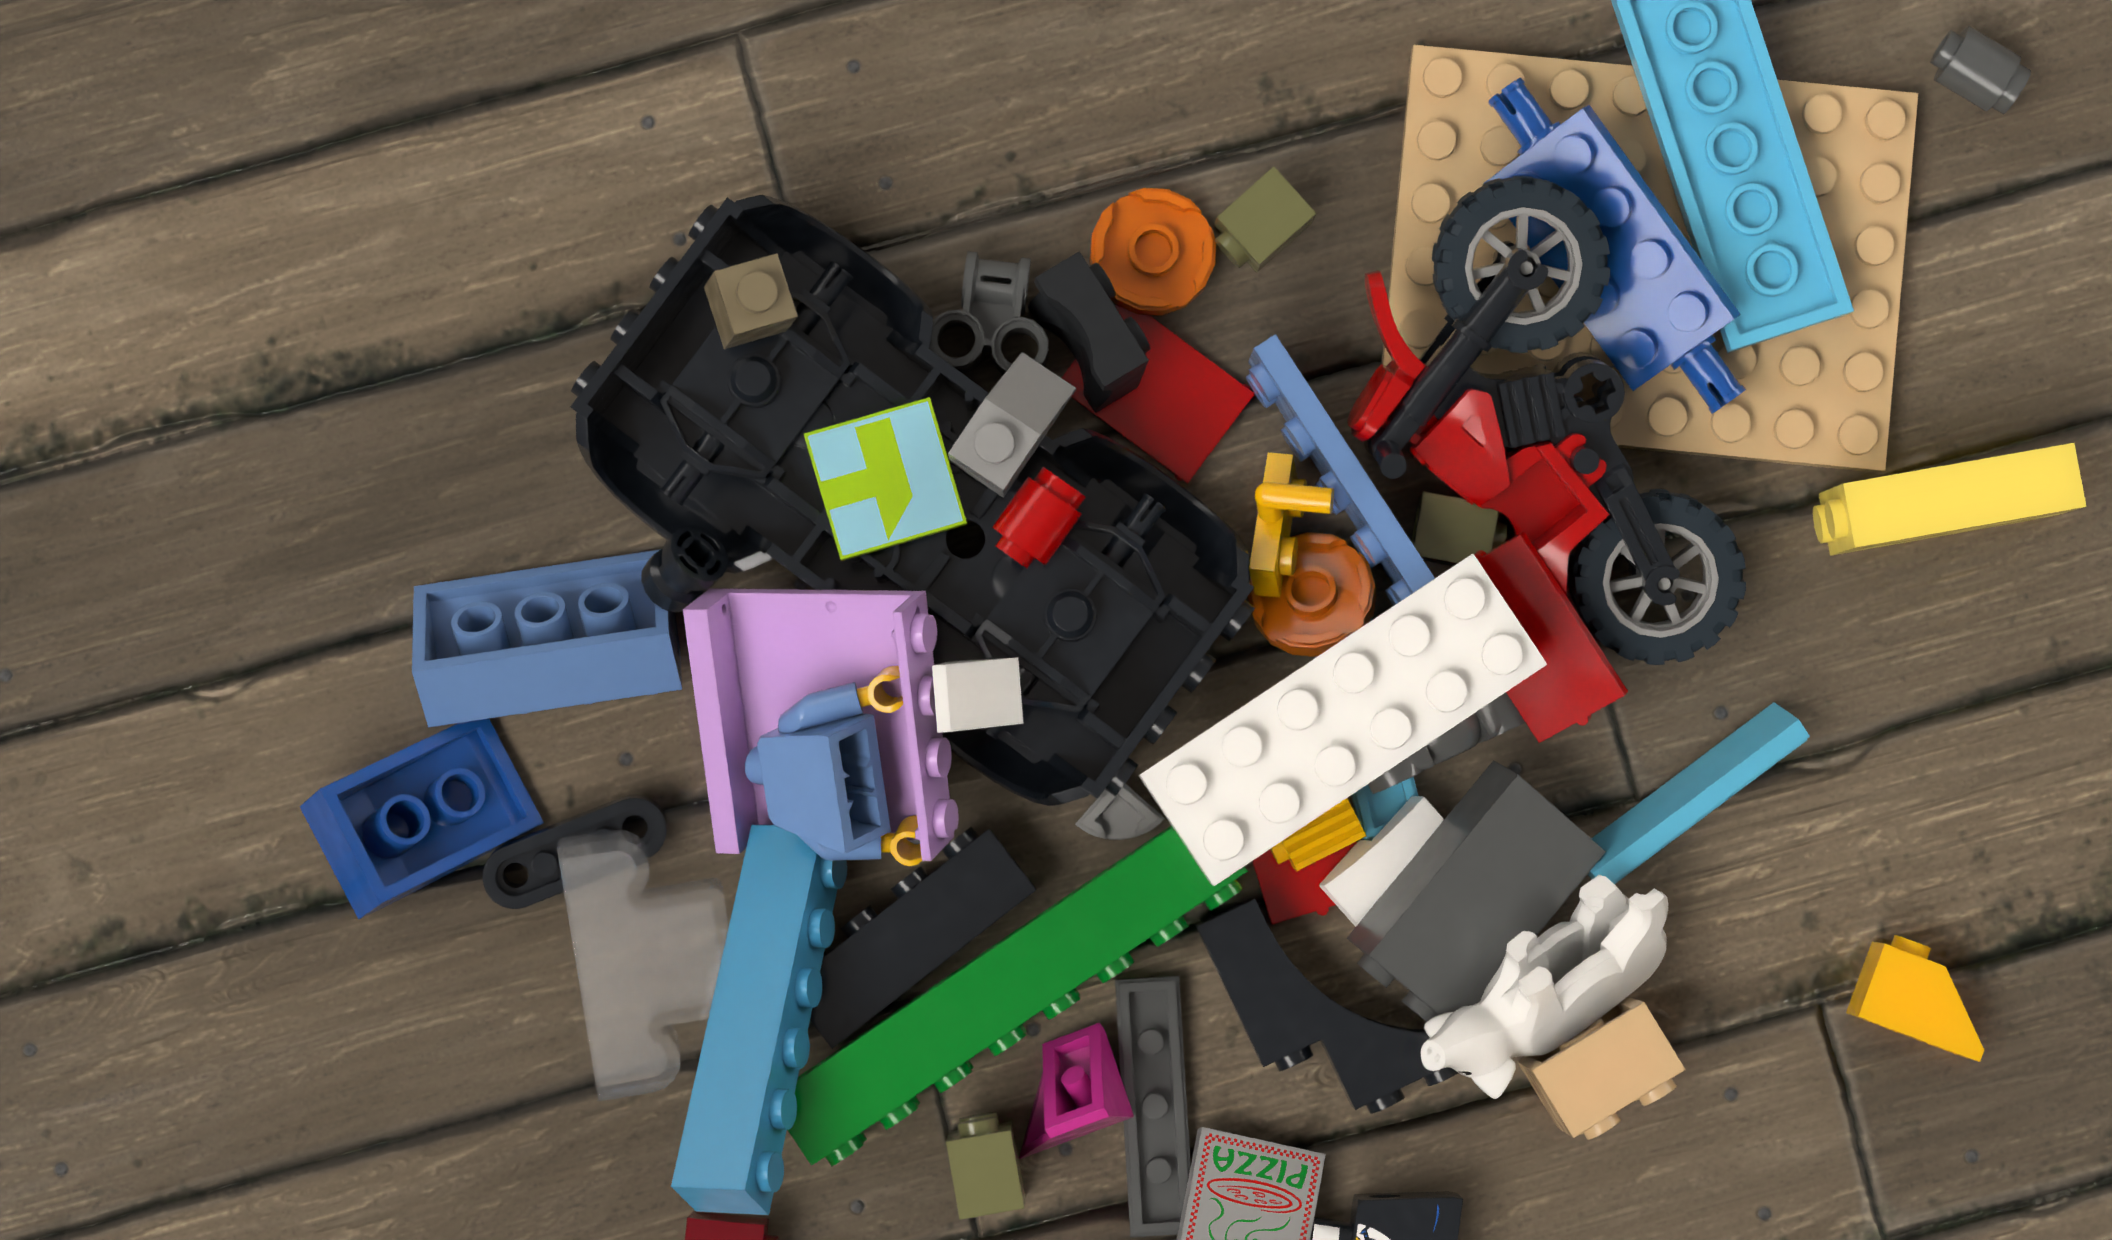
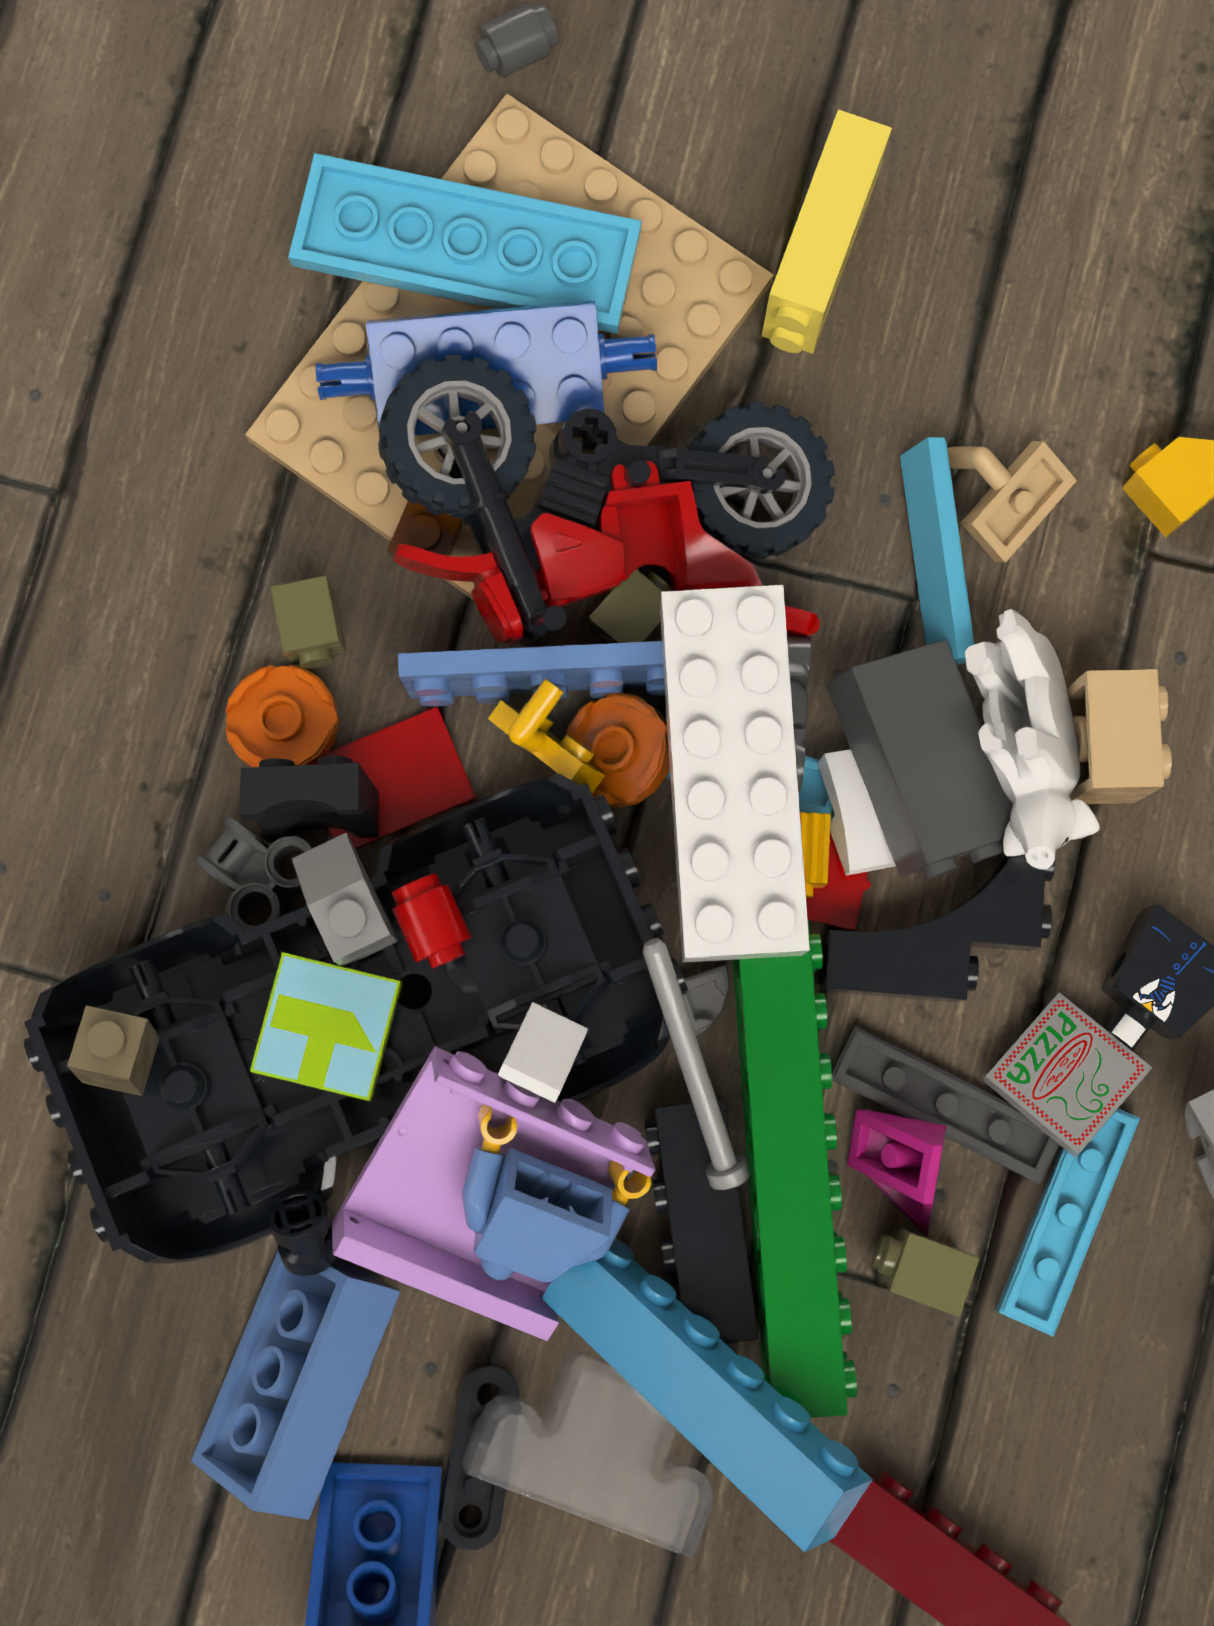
camera: 60 degrees left, 5 degrees down
(971, 927) = (726, 1168): none -> light grey bar
(1410, 285) = (426, 530): none -> reddish brown plate
(1577, 671) = (805, 574): red piece -> none
(1794, 841) = (1017, 495): none -> tan plate

